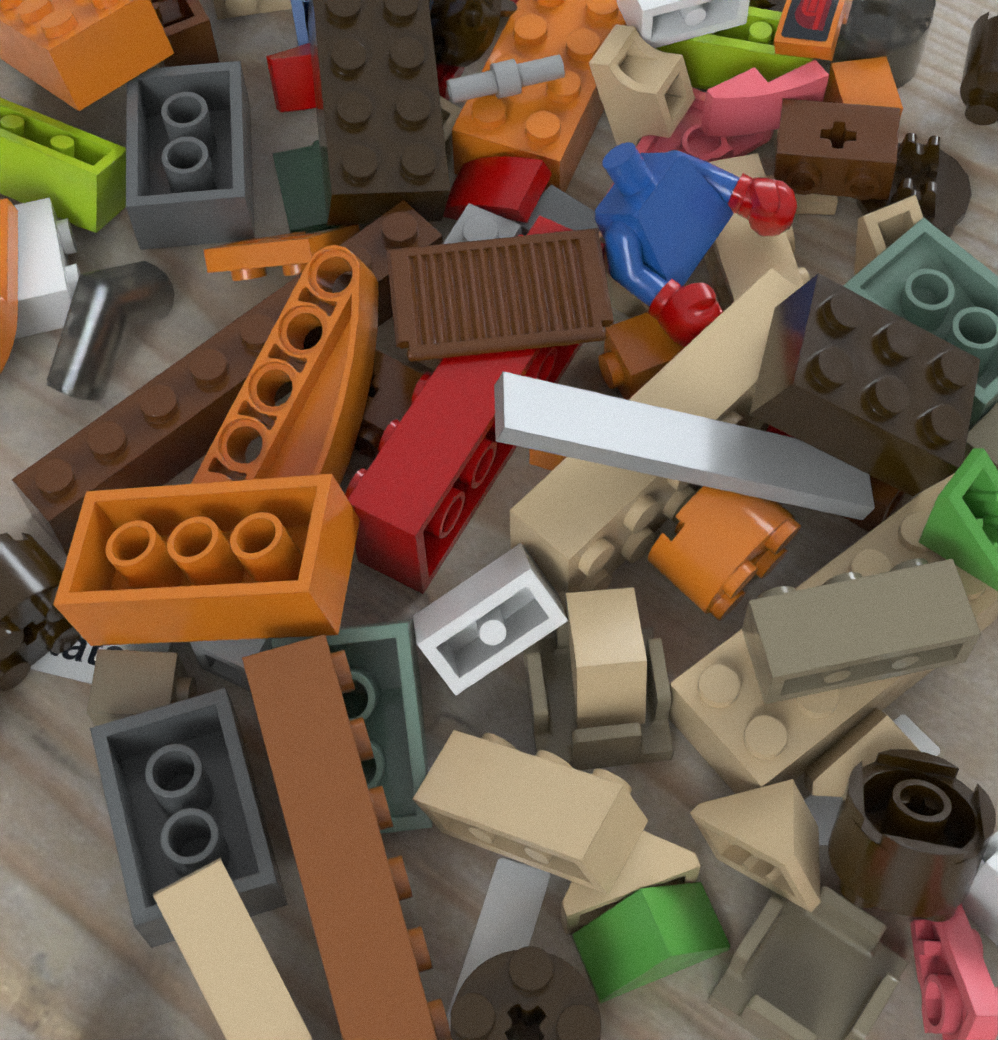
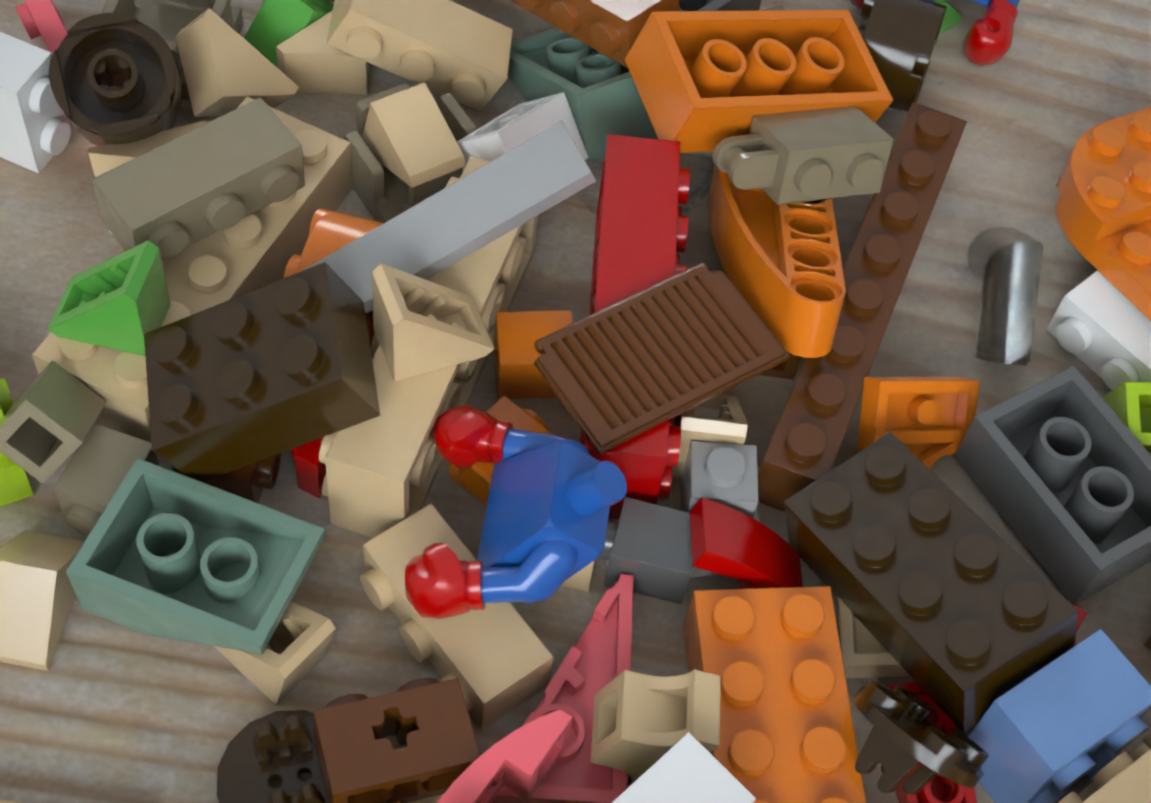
camera: 145 degrees right, 5 degrees down
(220, 446) = (807, 155): none -> dark tan brick
(505, 78) = (802, 635): light grey bar -> none
(703, 360) = (424, 324): none -> tan slope

